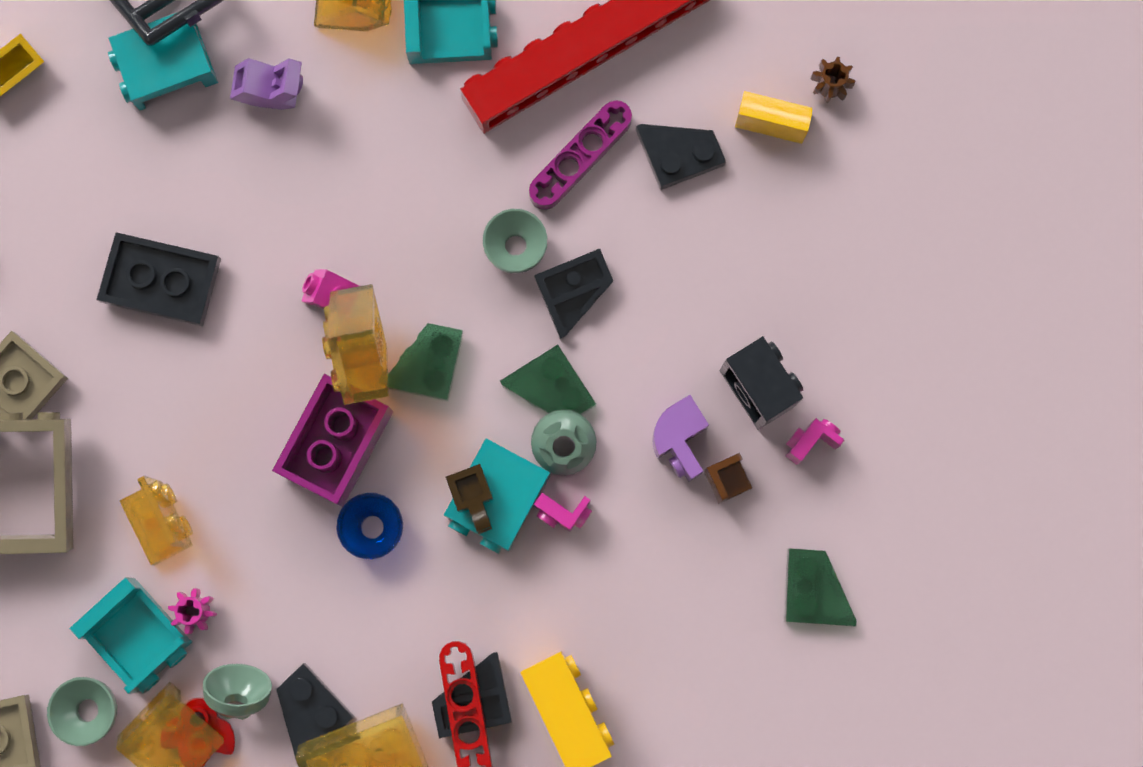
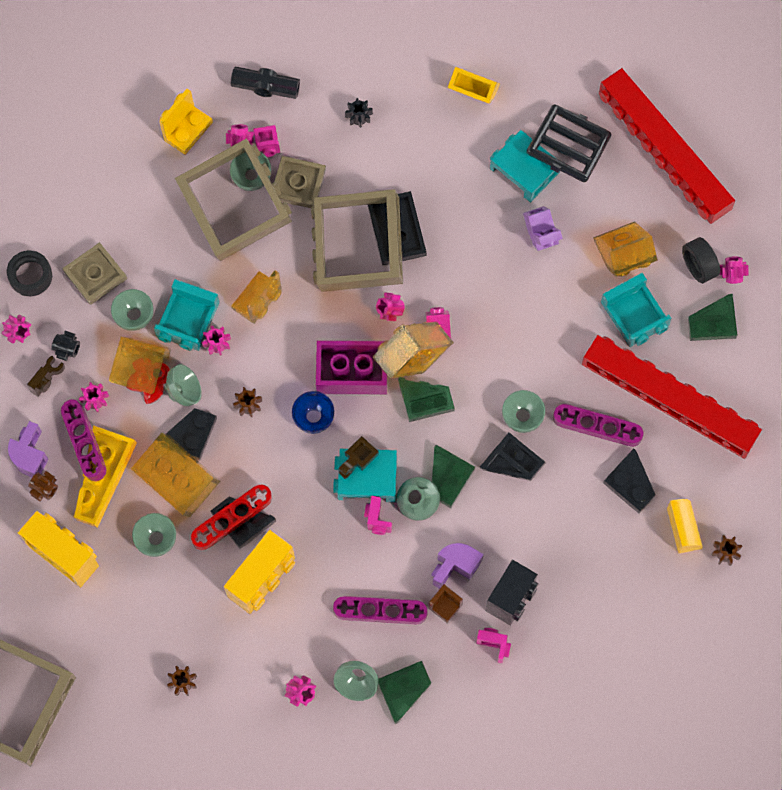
camera: 65 degrees right, 10 degrees down
(110, 391) = (392, 277): none -> dark tan window
(271, 344) = (390, 306): none -> dark pink gear
(298, 617) = (245, 395): none -> reddish brown gear
(689, 568) = (380, 607): none -> magenta beam
(755, 734) = (300, 690): none -> dark pink gear
(777, 650) = (356, 687): none -> sand green piece

